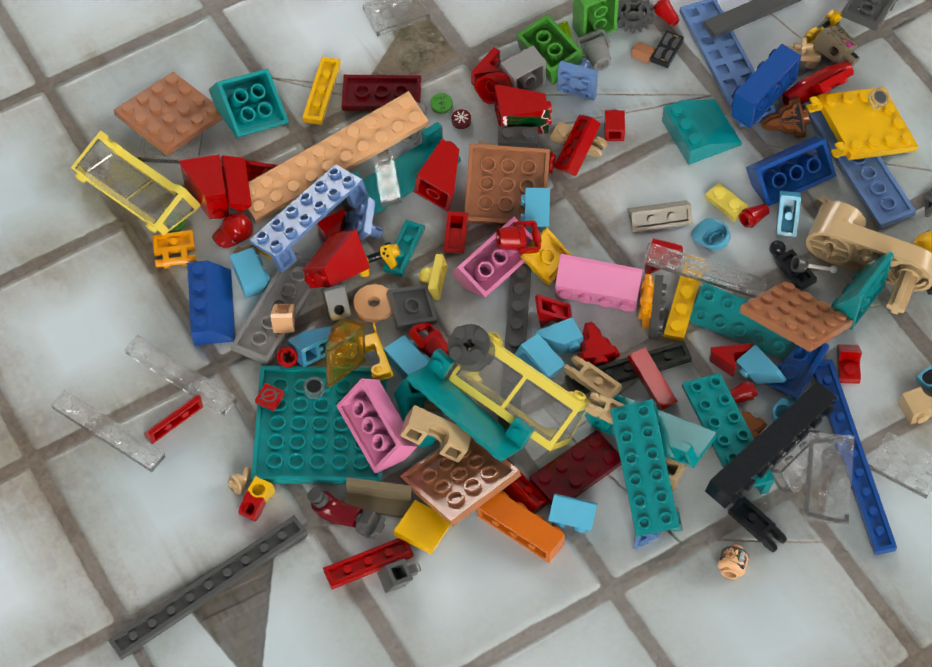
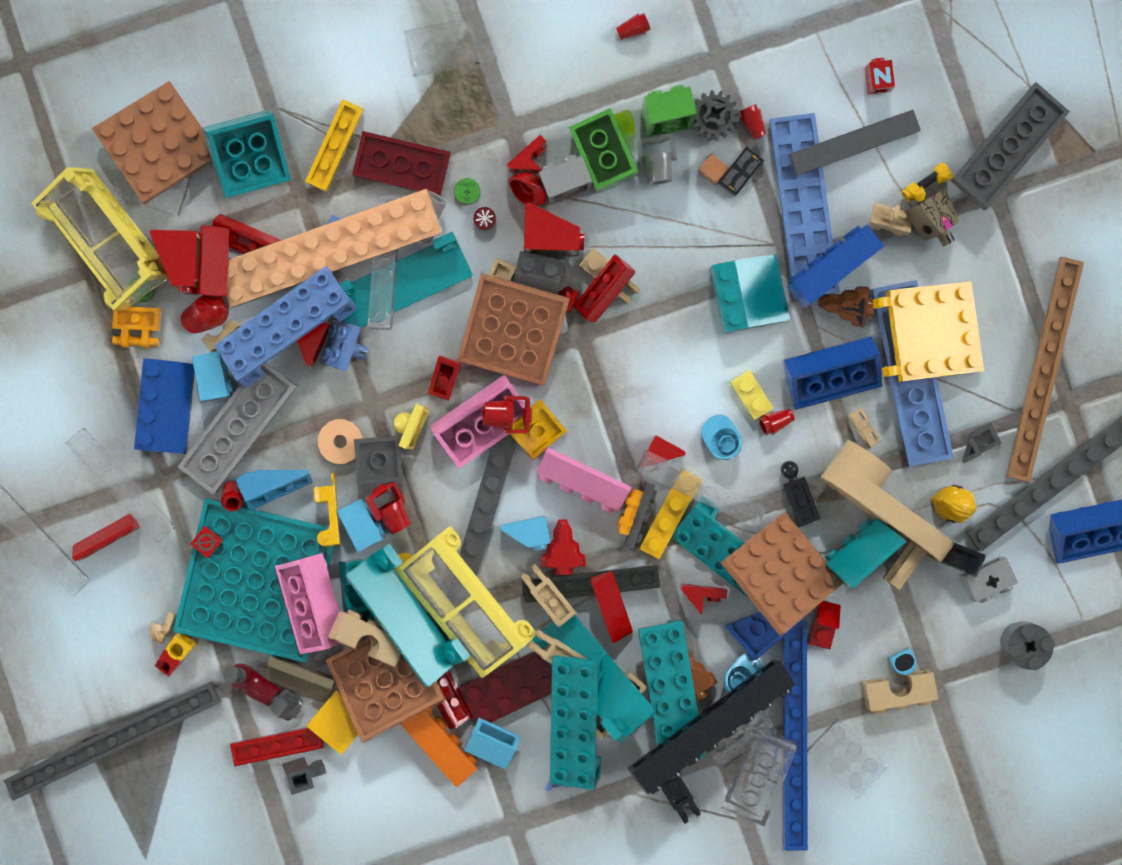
camera: 10 degrees right, 30 degrees up
(283, 318) = (236, 446): light nougat slope -> none
(314, 387) = (255, 540): clear tile -> none
(336, 260) = (302, 398): red slope -> none
(336, 296) = (296, 449): torso -> none
(344, 349) = (292, 509): clear yellow slope -> none
(387, 252) = (364, 388): yellow piece -> none
(407, 242) = (386, 377): teal tile -> none
(438, 175) = (440, 304): red slope -> none
(478, 356) = (421, 556): dark grey brick -> none
(536, 207) = (537, 373): medium azure brick -> none
(540, 356) = (499, 558): medium azure brick -> none
(551, 310) = (527, 499): red slope -> none
(578, 79) = (626, 201): medium blue plate -> none
(614, 125) = (653, 268): red brick -> none
(660, 216) = (674, 397): panel -> none
(733, 561) = (640, 828): light nougat head -> none
(744, 392) = (702, 639): red cone -> none
(759, 367) = (727, 619): medium azure slope -> none
(788, 213) = (814, 427): medium azure slope -> none
(800, 264) = (806, 503): dark grey hinge -> none
(819, 82) = (901, 268): red plate -> none
(878, 98) = (958, 304): clear tile -> none

